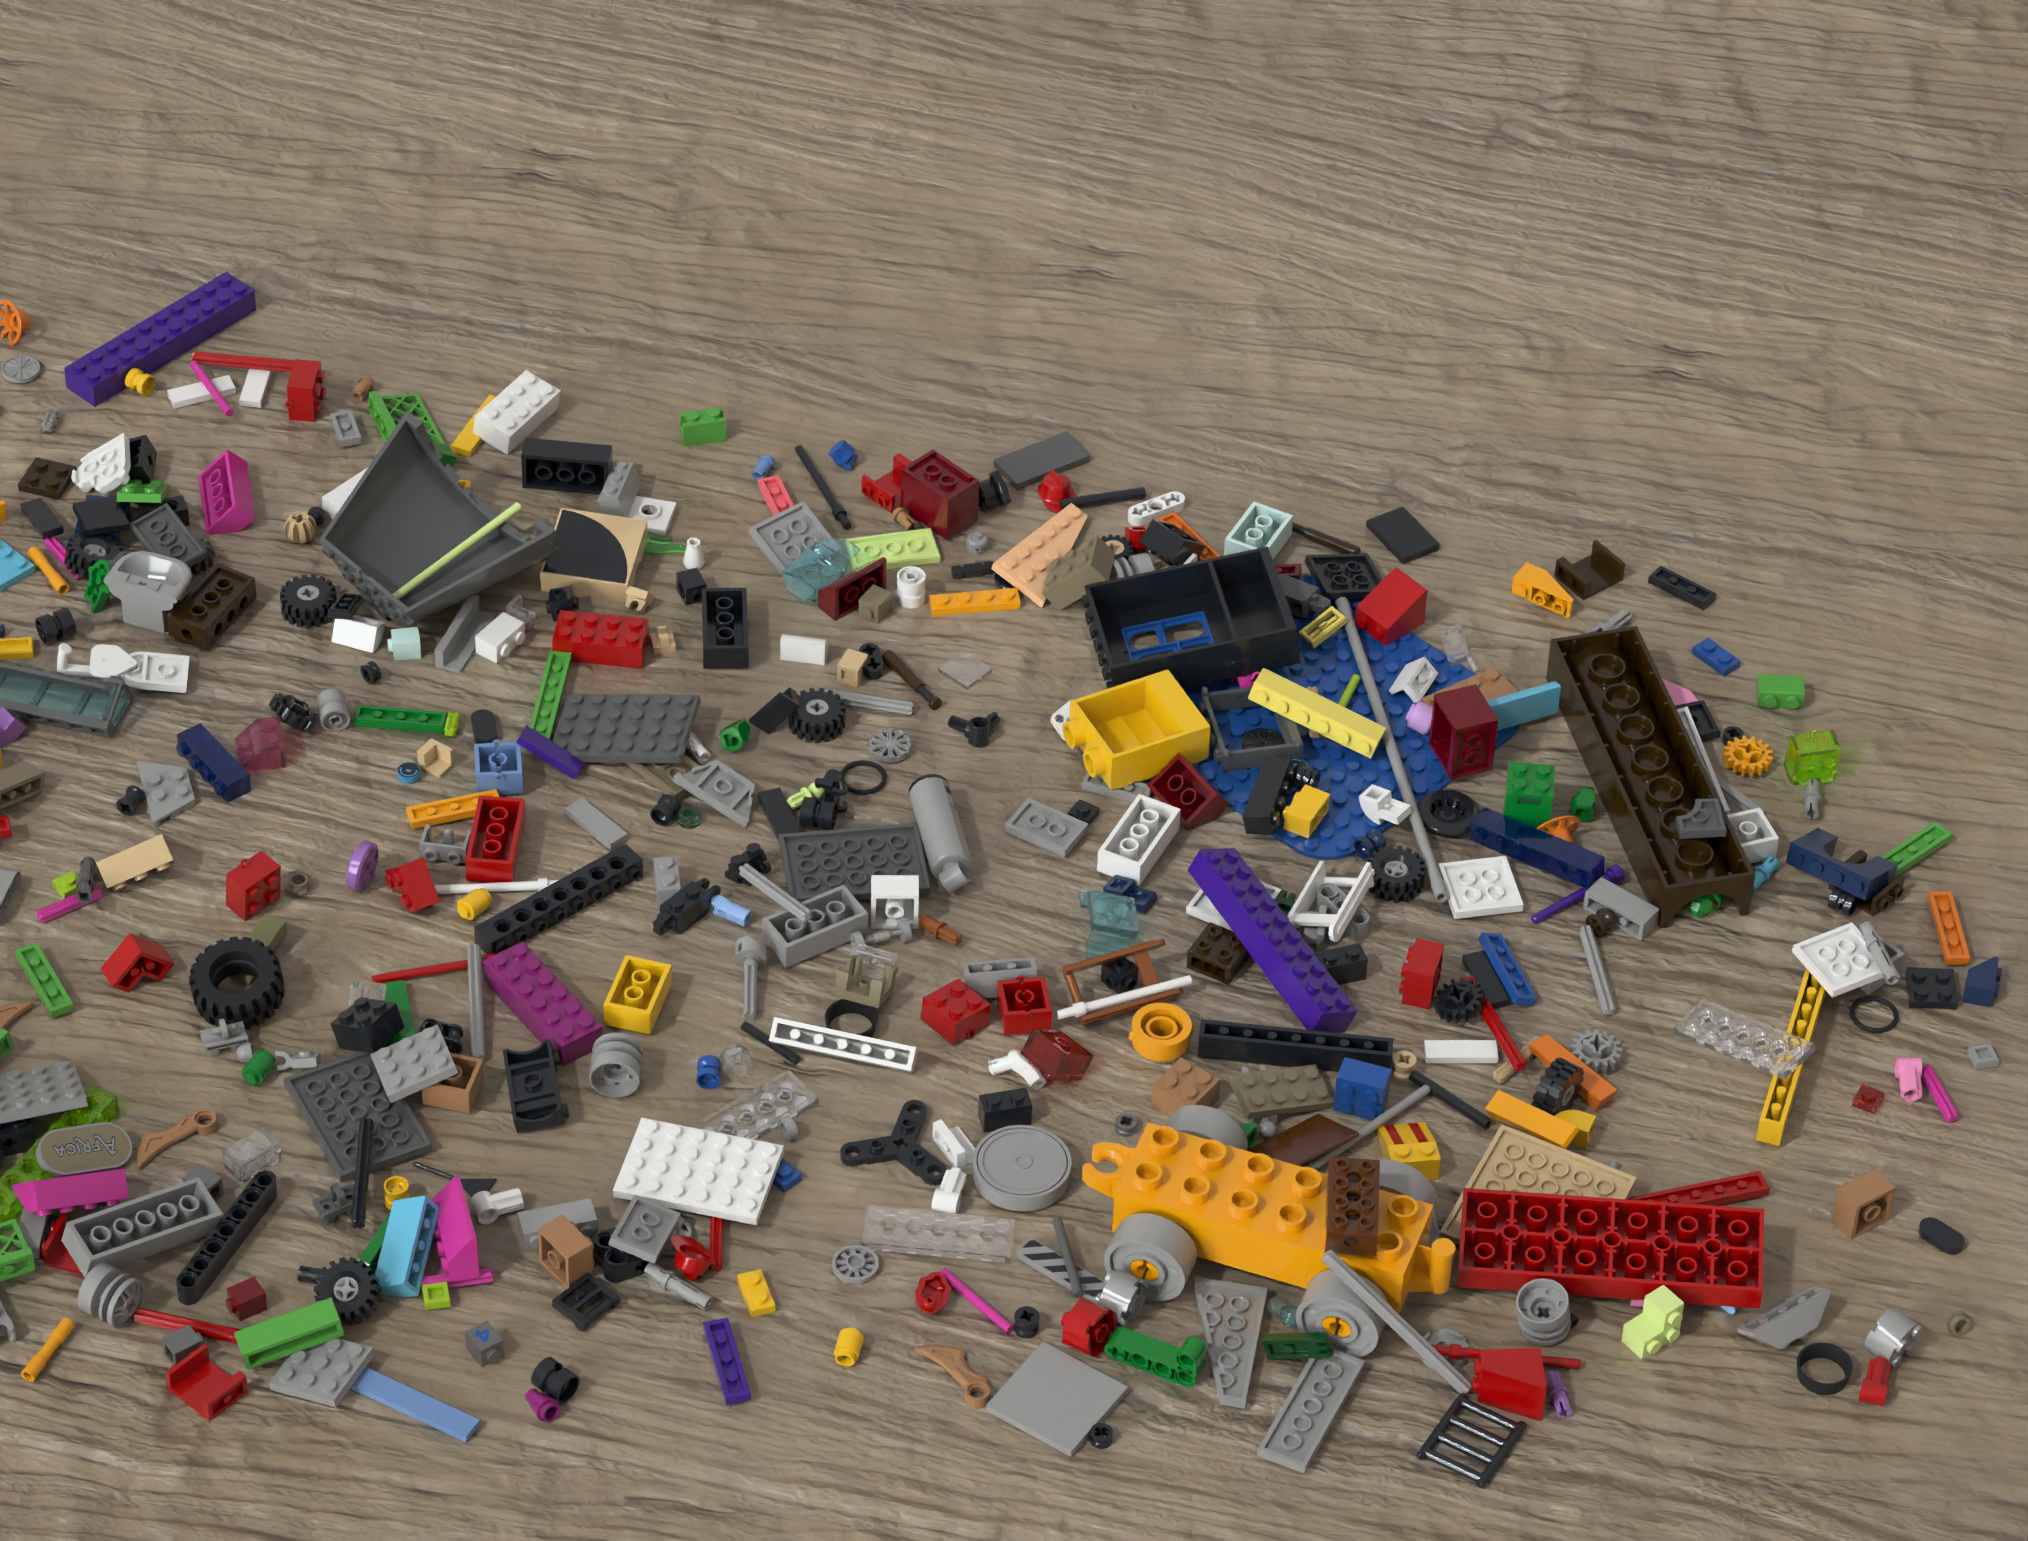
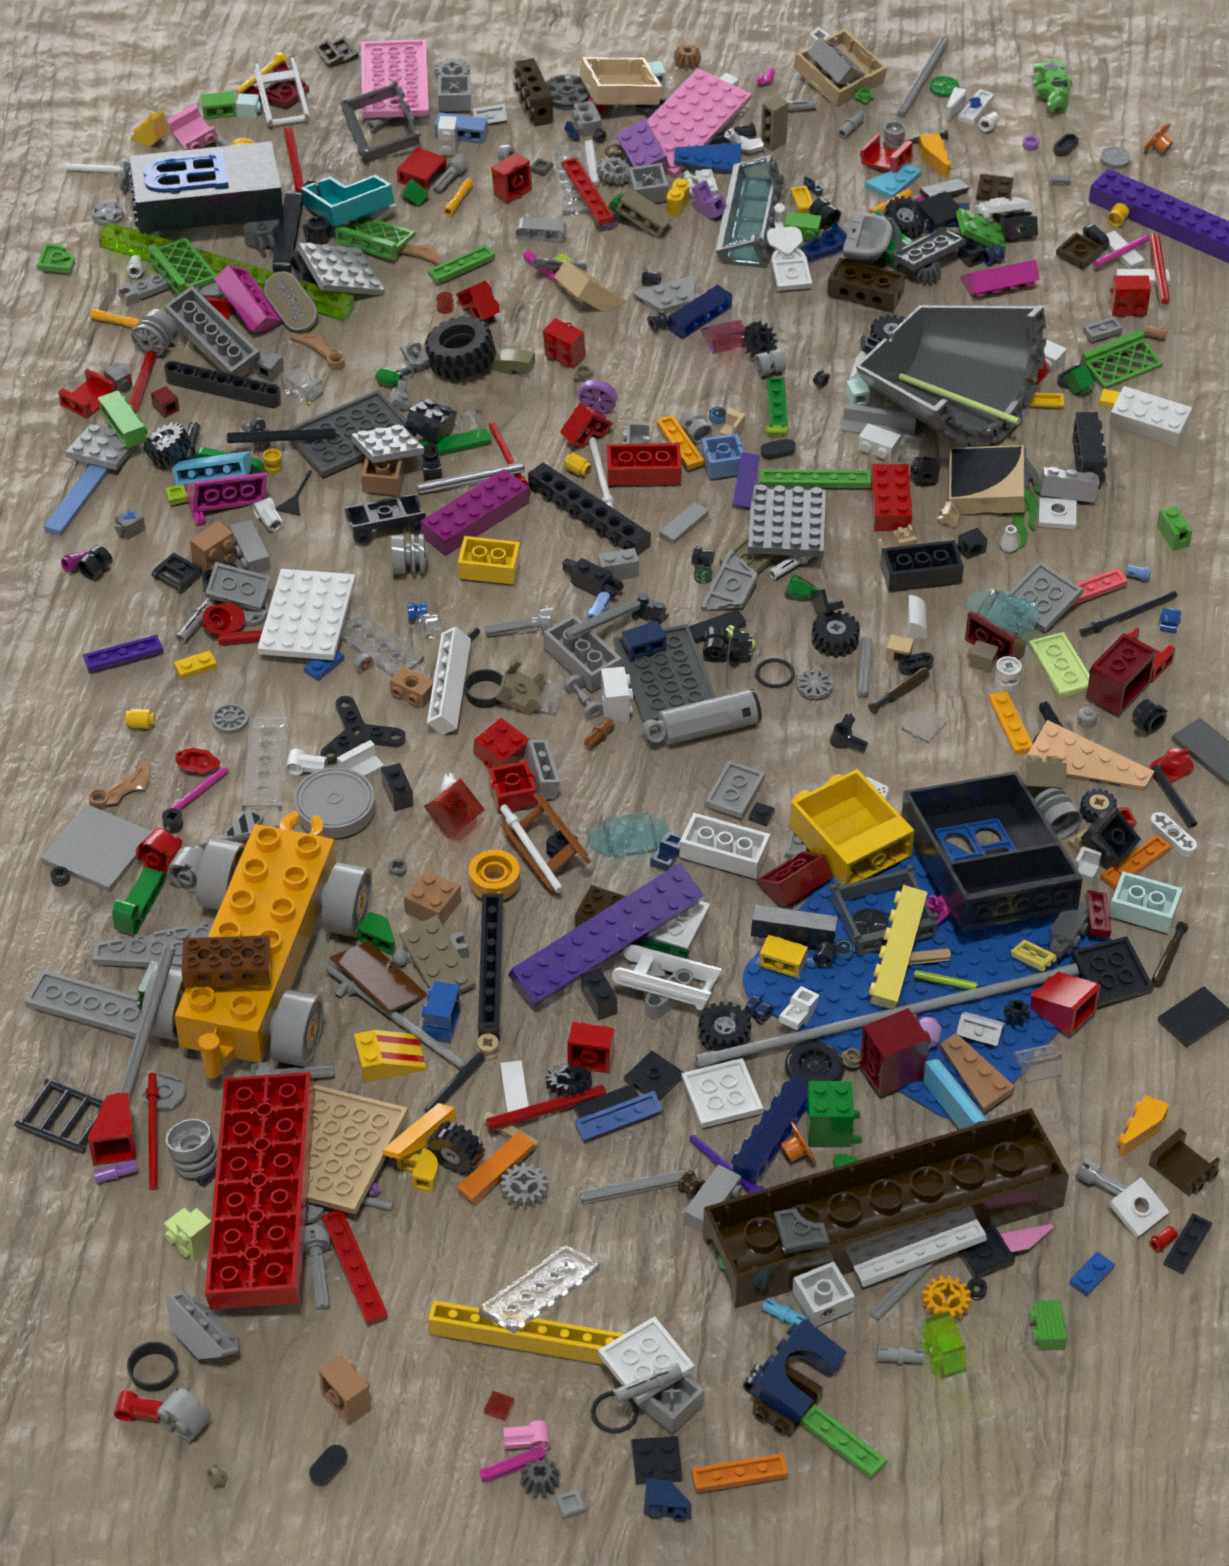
camera: 85 degrees right, 5 degrees up
(81, 643) = (808, 224): none -> bright green brick
(108, 629) = (827, 244): none -> clear blue wing
(119, 1002) = (445, 302): none -> clear red wheel
(175, 406) = (1094, 233): none -> black beam
(182, 488) = (993, 254): none -> dark blue wheel
(194, 424) = (1079, 250): none -> dark brown plate
(220, 803) = (657, 321): none -> black wheel
(442, 786) = (695, 426): none -> light grey wheel
(810, 867) = (644, 640): none -> dark blue brick
(839, 1085) = (411, 687): none -> medium nougat brick
(1399, 649) = (1016, 1012): none -> black gear
(1443, 781) = (851, 1058): none -> dark tan plate
(1455, 936) = (654, 1074): none -> black plate
(1644, 608) = (1125, 1209): none -> white piece
(1682, 603) = (1159, 1241): none -> red pin
(1957, 1070) = (540, 1477): none -> dark grey gear

